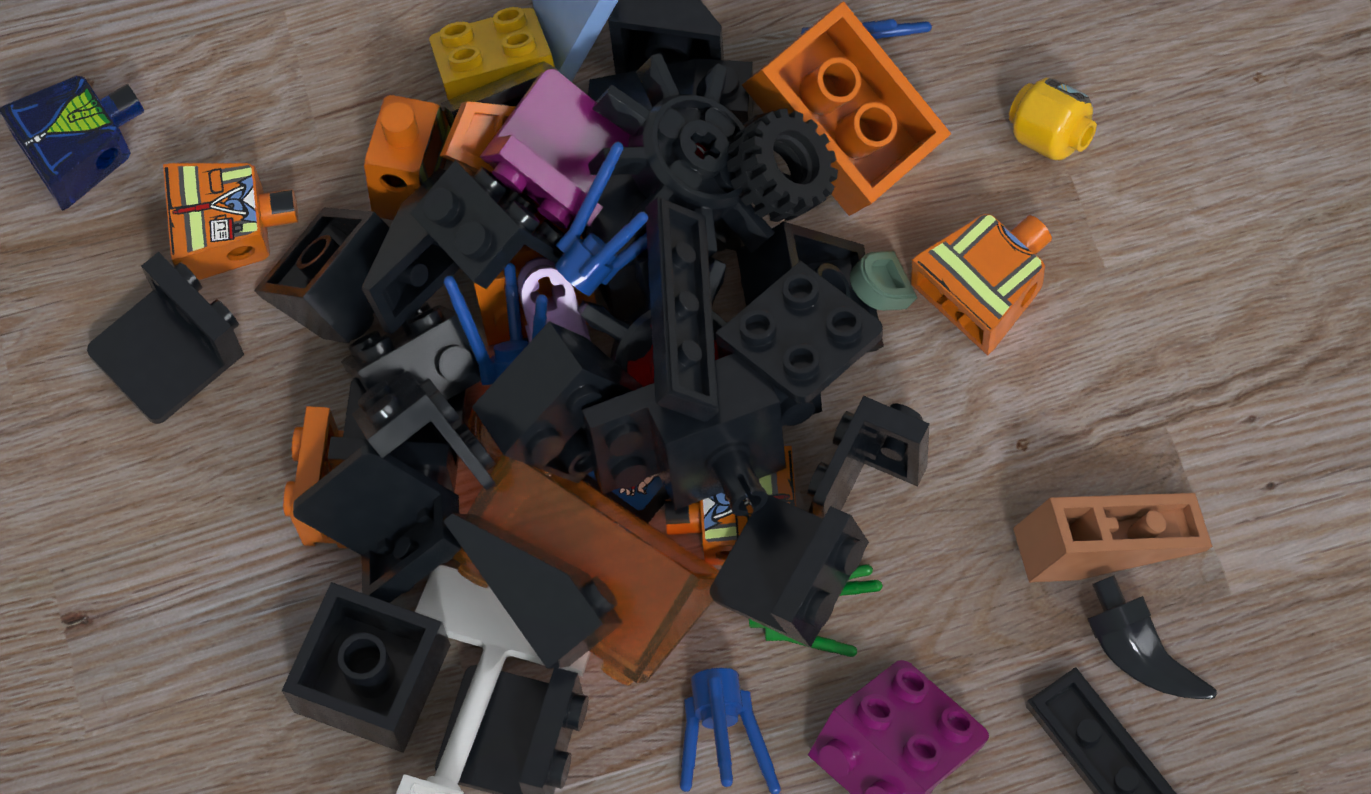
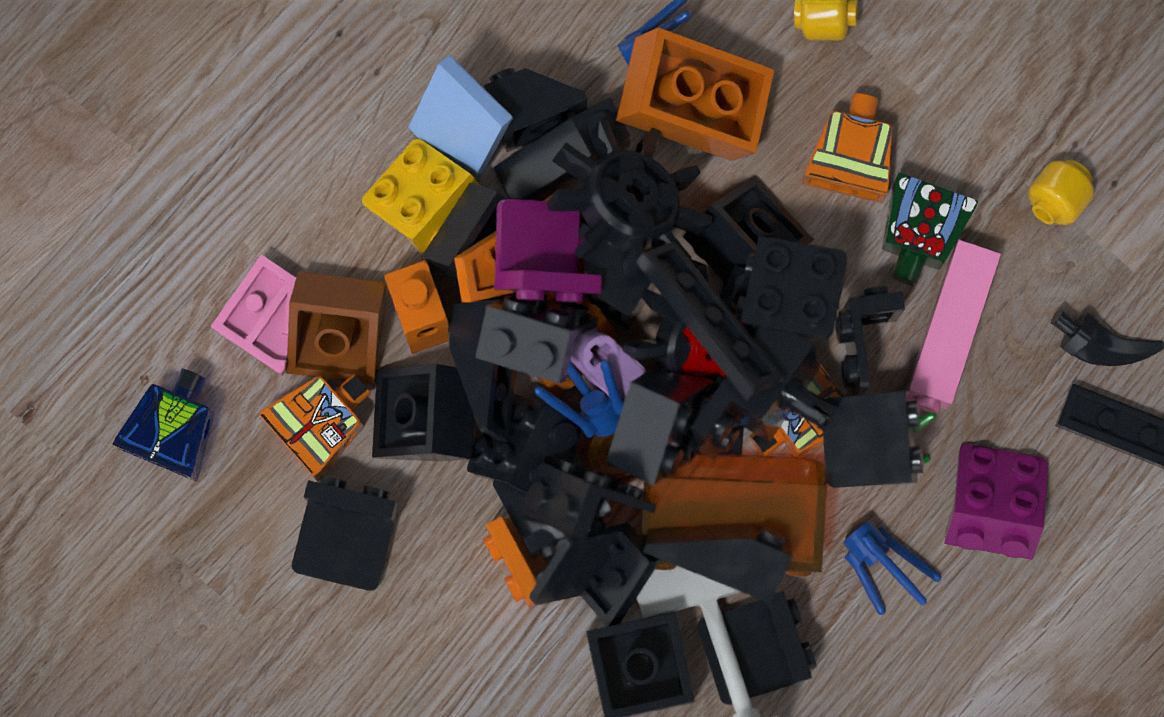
camera: 40 degrees left, 15 degrees up
(247, 82) = (259, 314): none -> bright pink wing
(307, 133) = (335, 327): none -> dark orange slope
(591, 260) = (620, 318): blue plant -> none
(762, 179) = (678, 180): black tyre -> none
(882, 282) = (786, 197): sand green tile -> none
(972, 520) = (952, 326): none -> bright pink brick
(1015, 396) = (923, 225): none -> torso
(1108, 534) = (1042, 283): nougat slope -> none
(1197, 451) = (1061, 192): none -> yellow head

